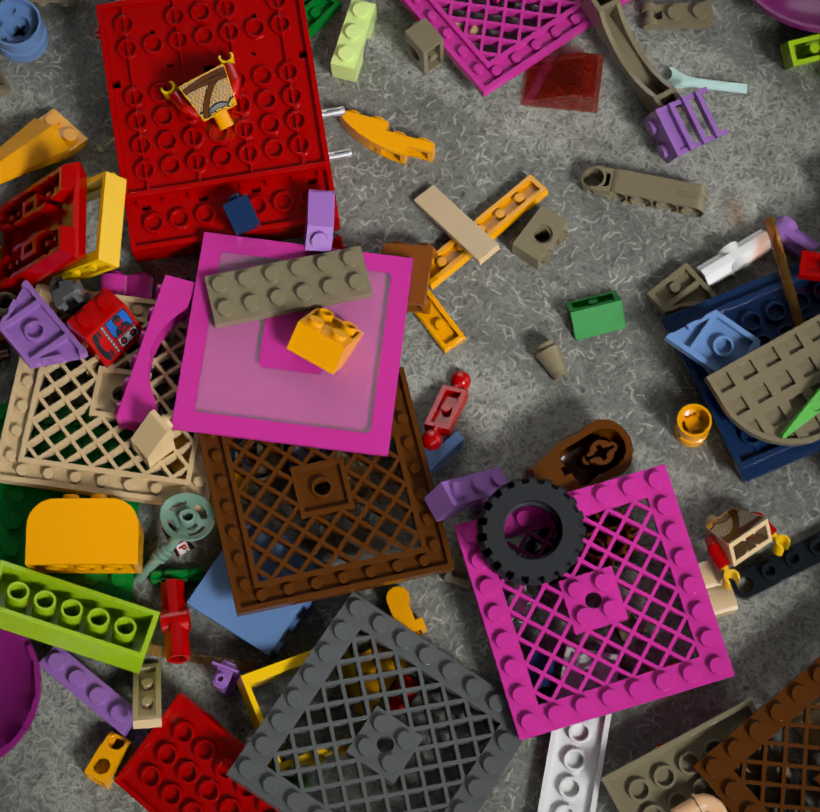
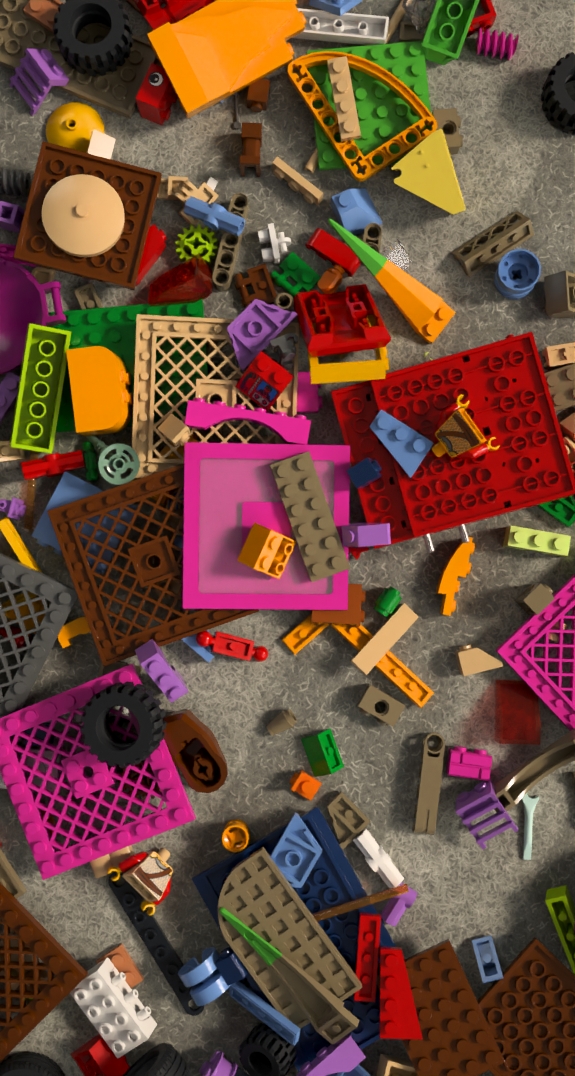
camera: 75 degrees right, 15 degrees up
(207, 166) = (401, 441): none -> medium blue wing
(409, 218) = (387, 601): none -> green brick
(494, 123) = (474, 660): none -> tan slope
(622, 141) = (469, 763): none -> dark pink brick
(634, 339) = (304, 784): none -> orange bracket

